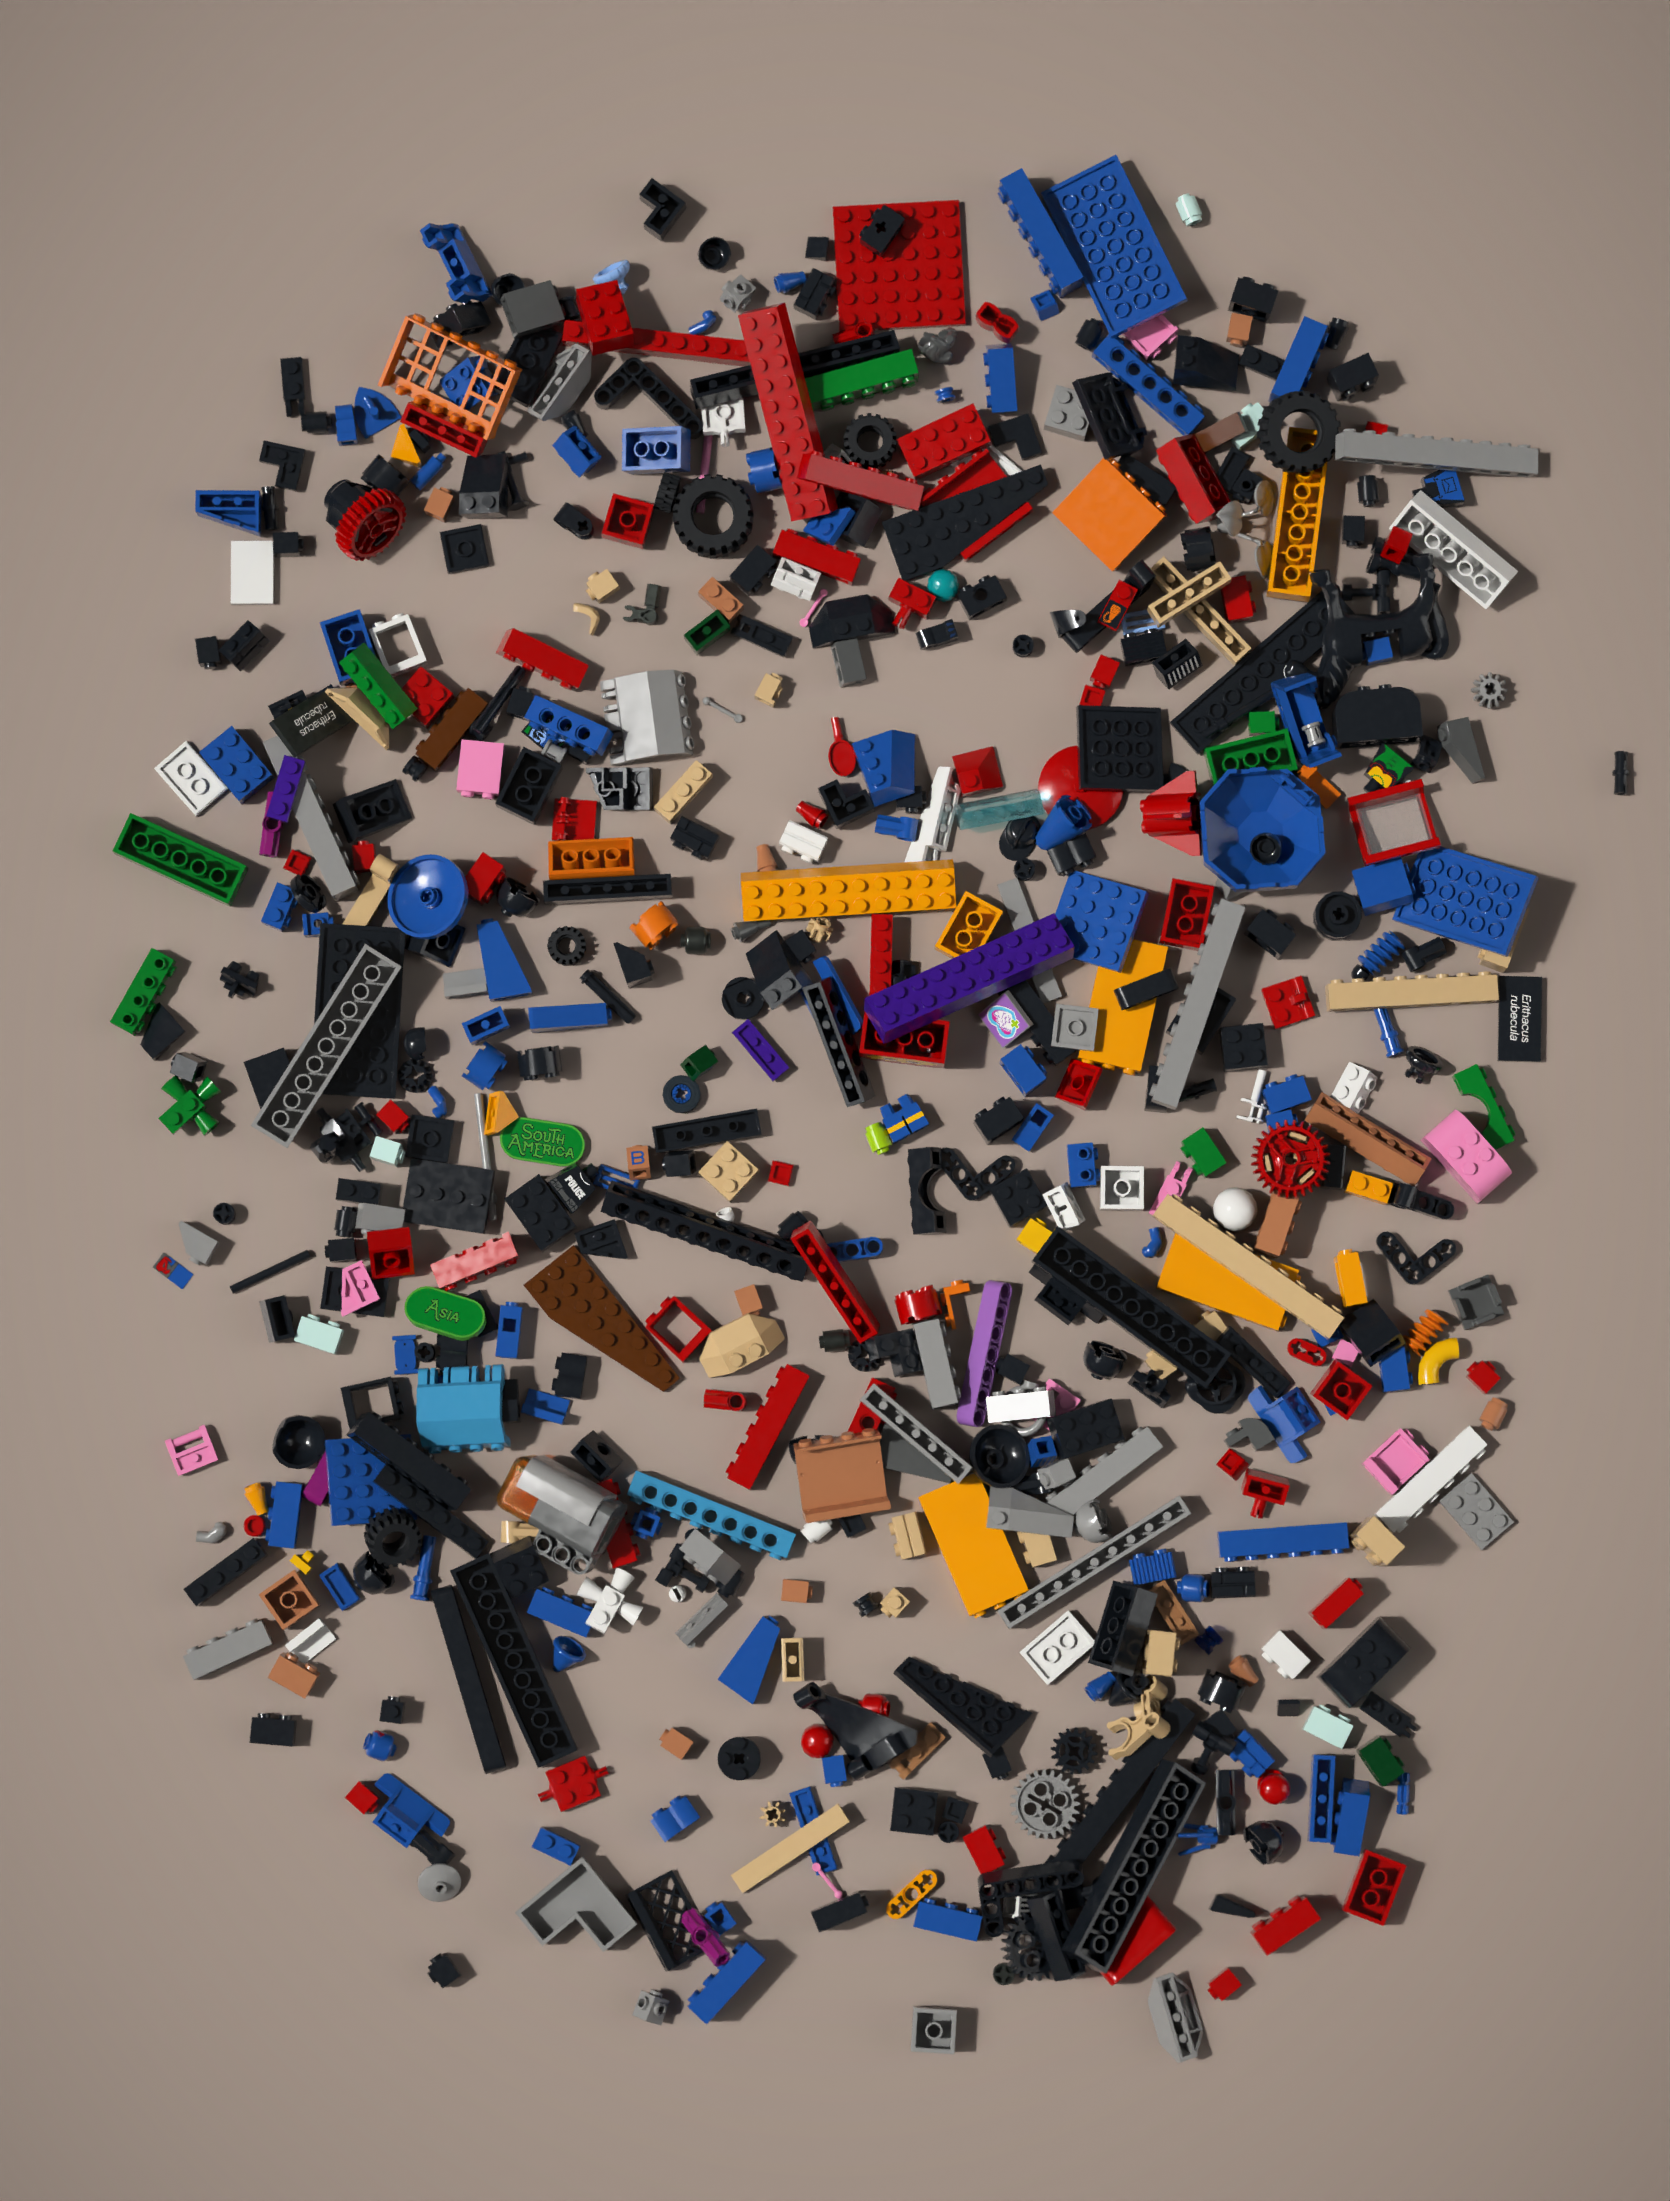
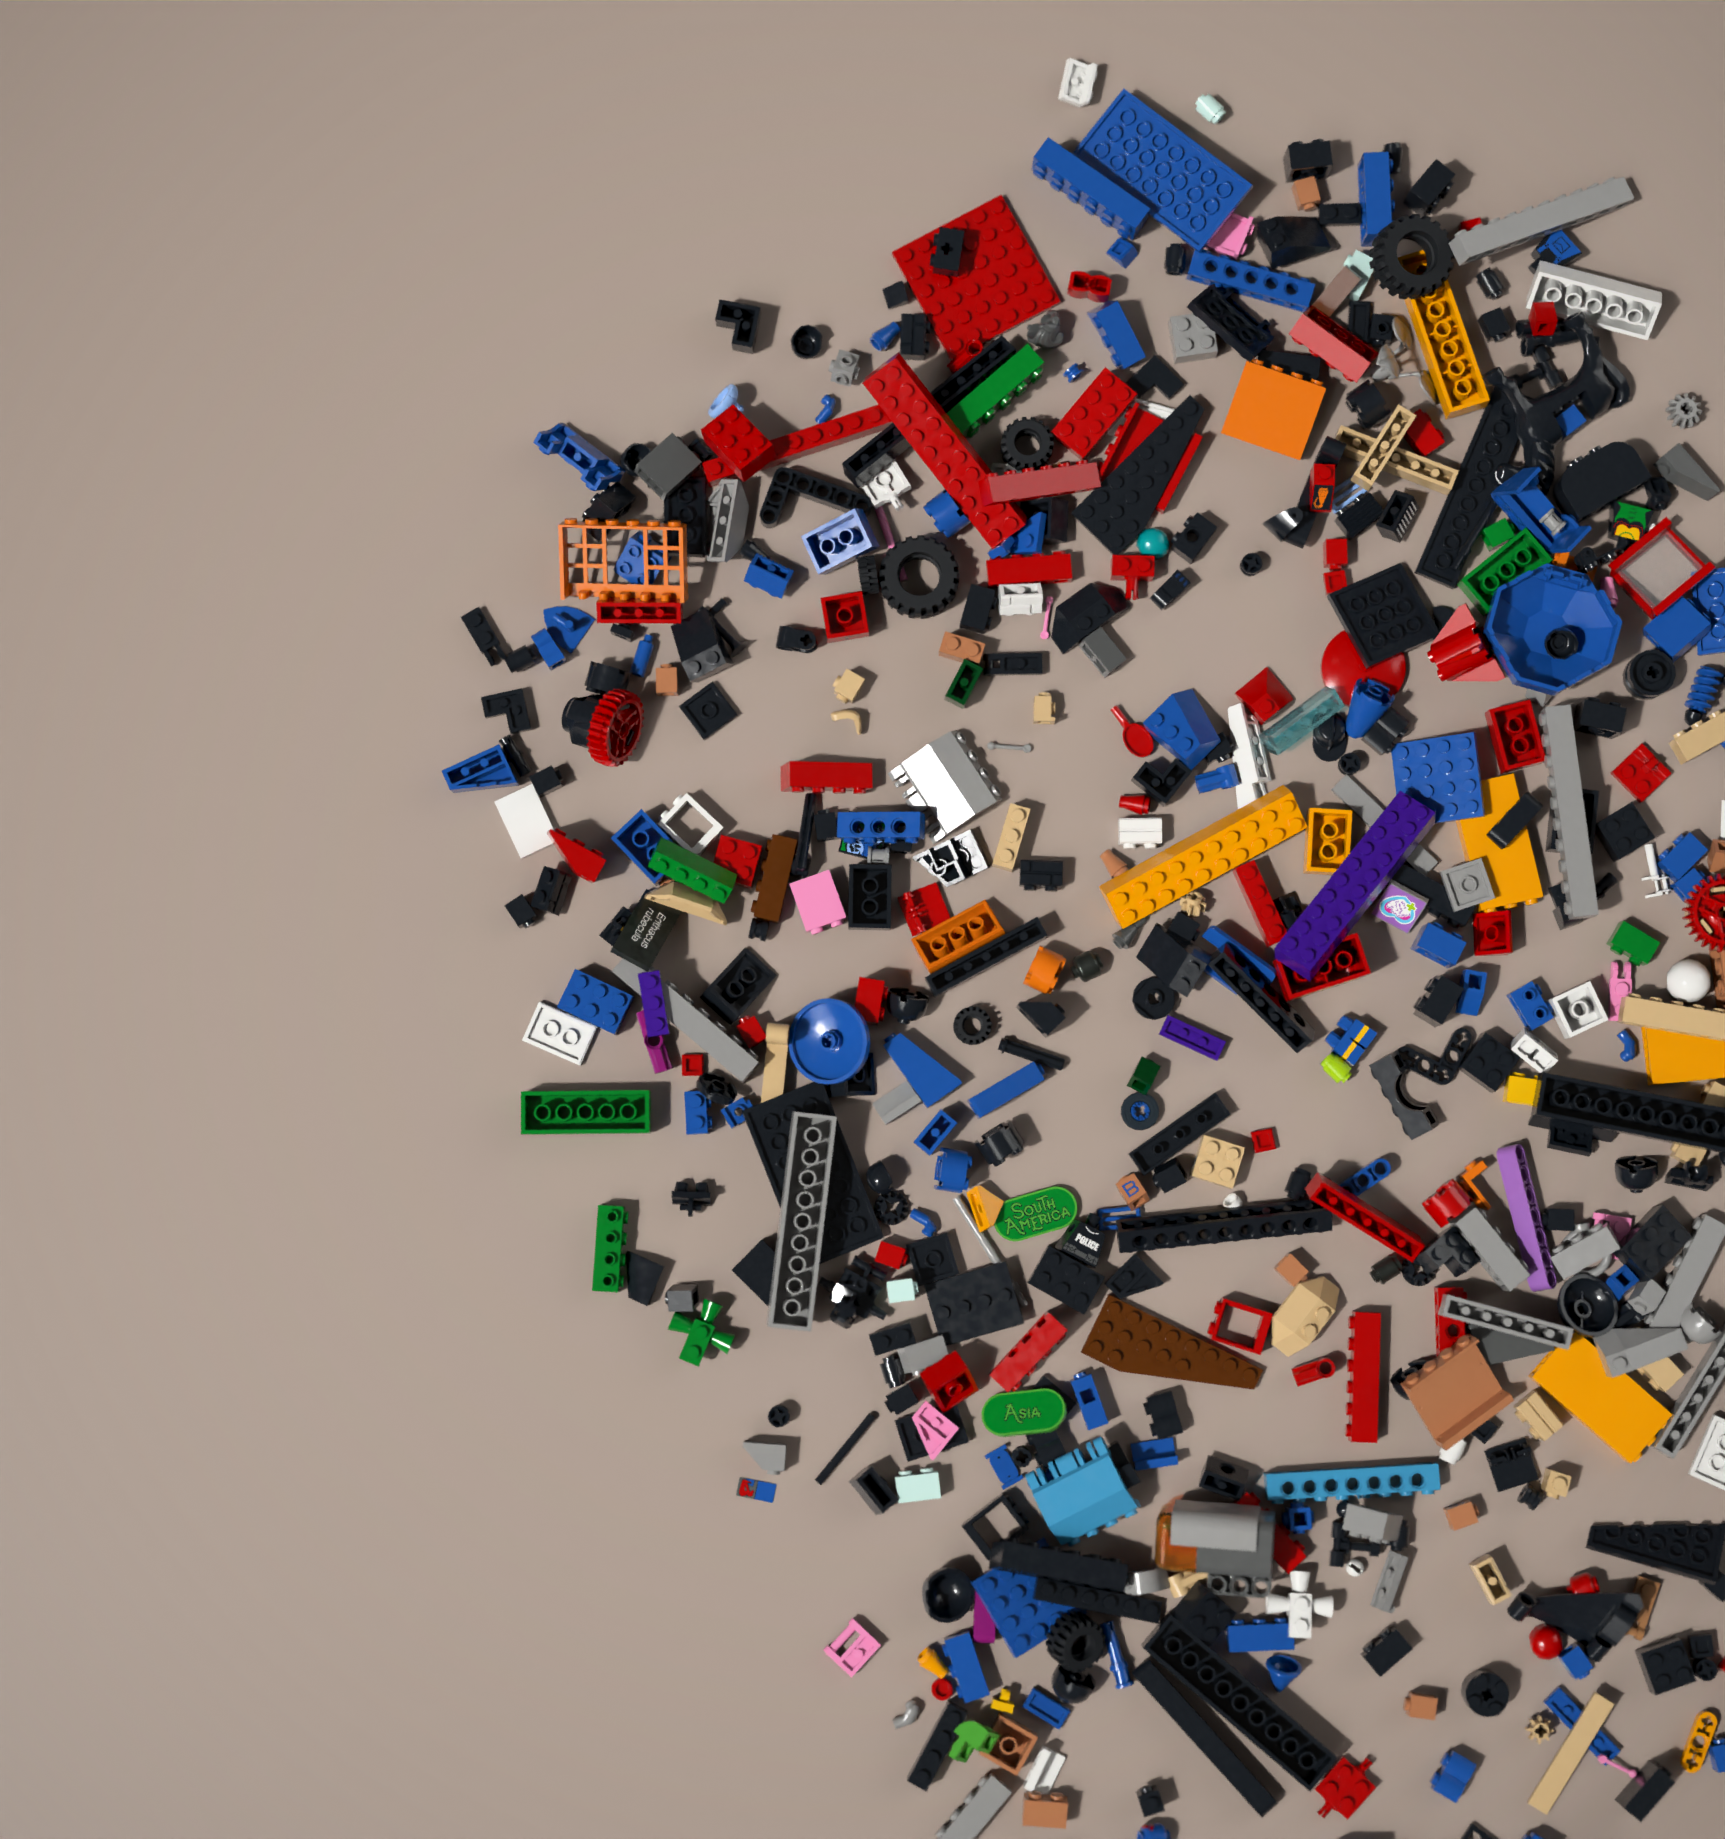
camera: 25 degrees left, 0 degrees up
(259, 1576) = (972, 1736): none -> bright green brick
(283, 631) = (579, 859): none -> red slope
(404, 449) = (612, 646): light orange slope -> none
(481, 1514) = (1146, 1581): none -> light grey brick
(647, 615) = (899, 678): pearl dark grey bar -> none
(668, 1679) = (1385, 1650): none -> black brick
(750, 1662) = (1452, 1598): blue slope -> none
(800, 525) = (1002, 549): none -> blue plate
(863, 1569) = (1511, 1464): none -> black hinge
(1078, 129) = (1077, 83): none -> white bracket
(1328, 786) = (1587, 559): none -> black hinge
(1336, 826) = (1607, 585): none -> bright pink cone

